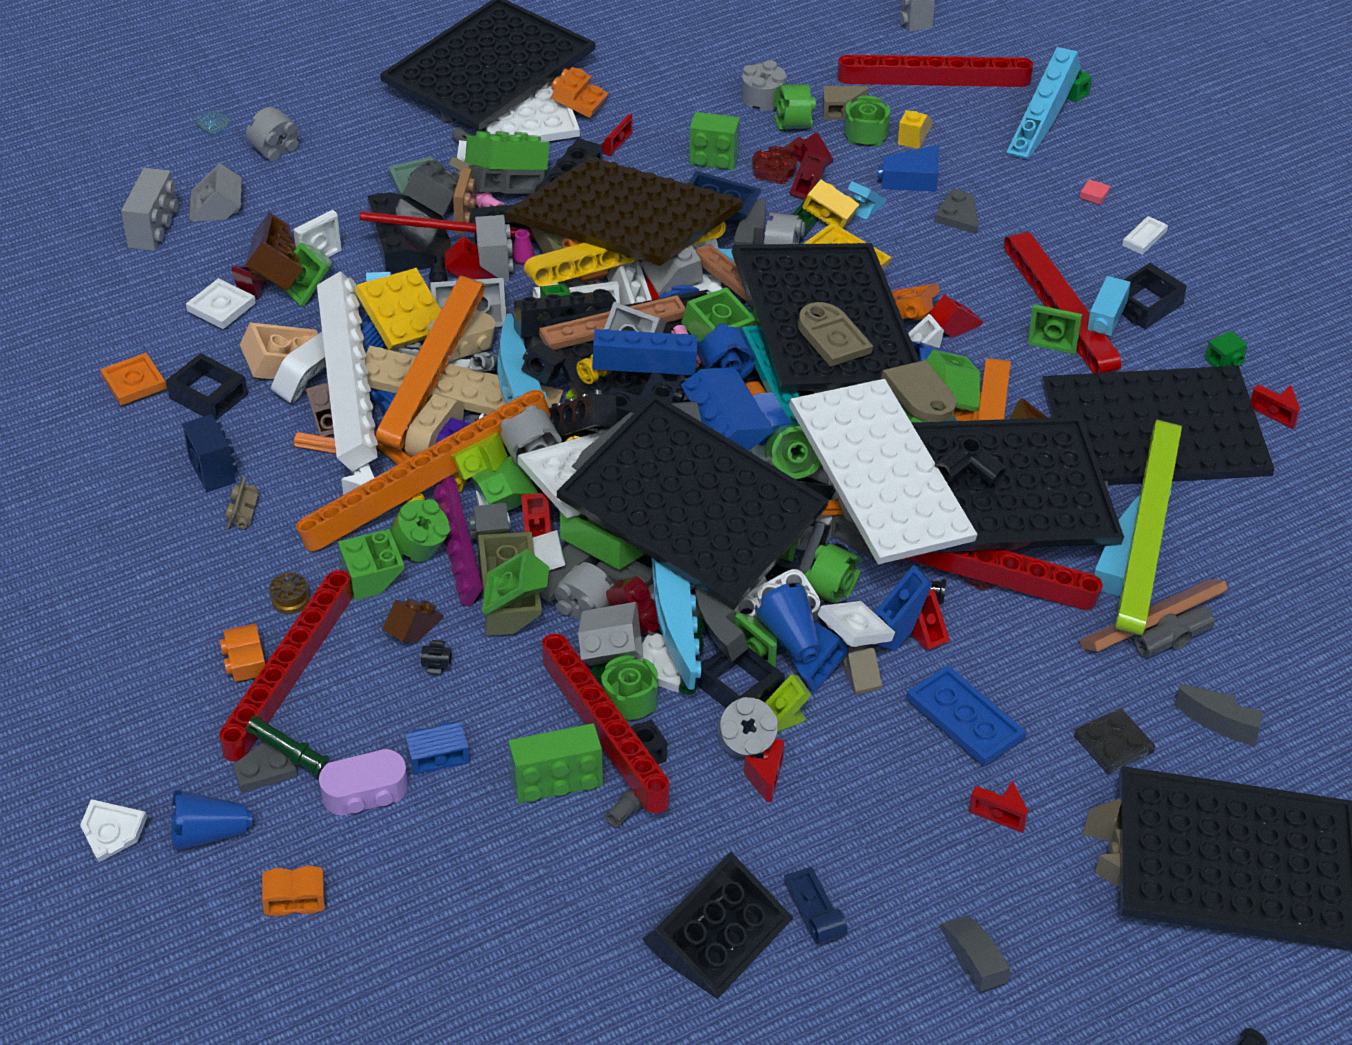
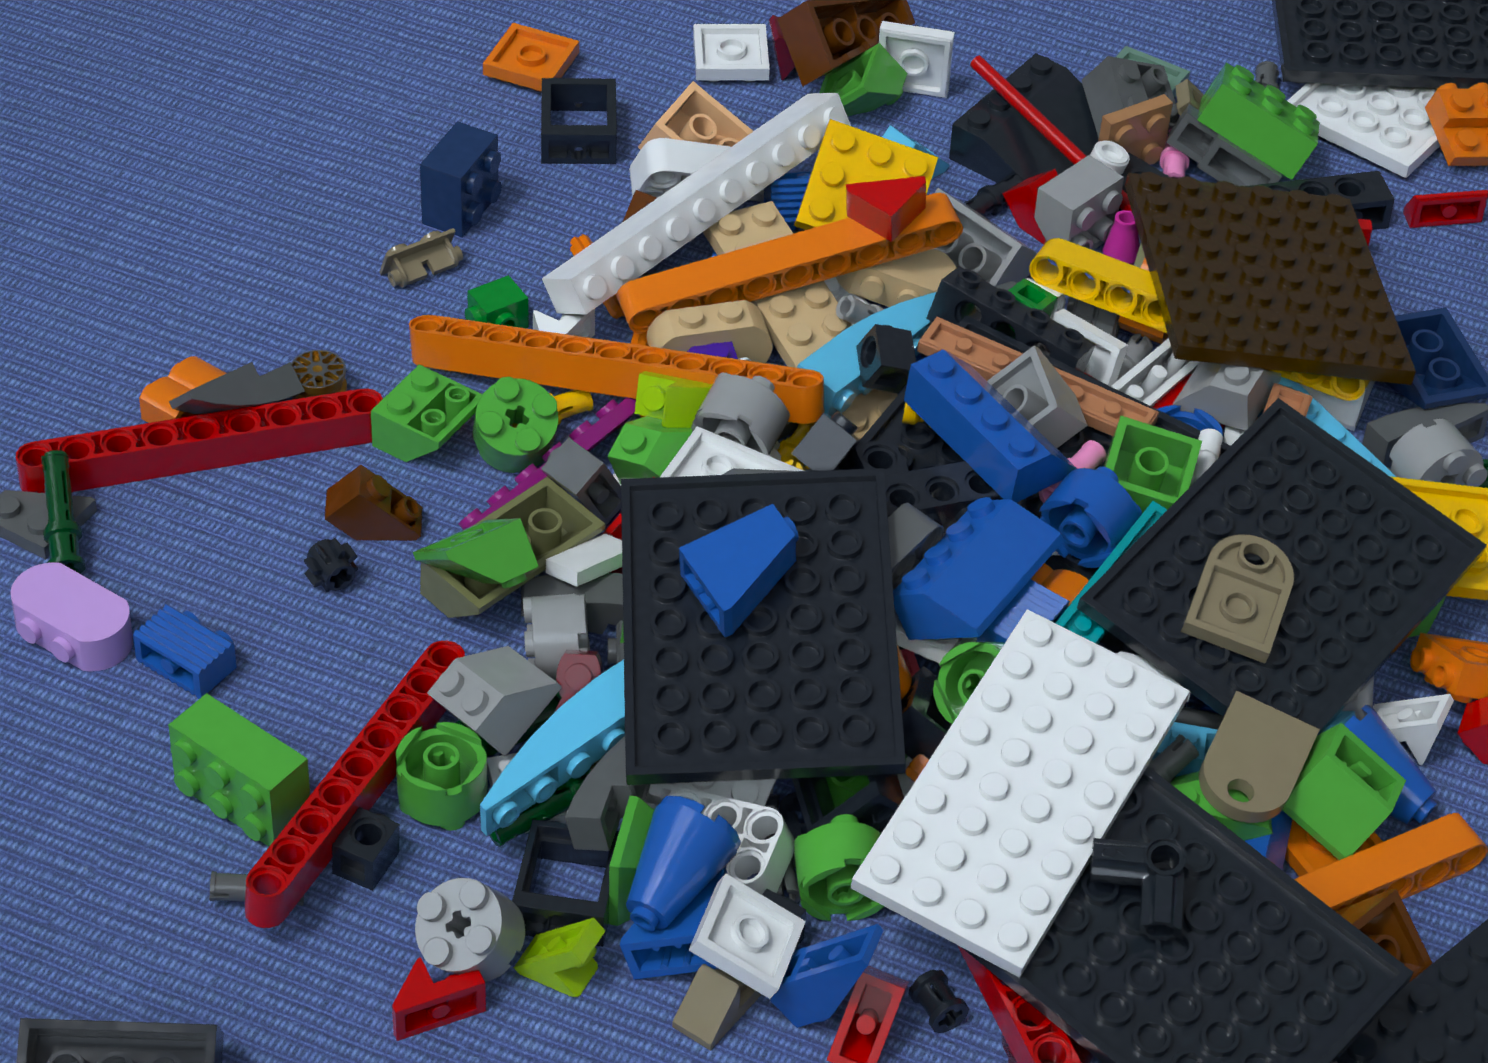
camera: 50 degrees right, 0 degrees up
(275, 622) = (241, 389): none -> dark grey slope
(315, 493) = (498, 303): none -> green brick
(452, 298) = (886, 204): none -> red slope
(470, 212) = (1111, 155): none -> white tile
(666, 480) = (739, 565): none -> blue slope

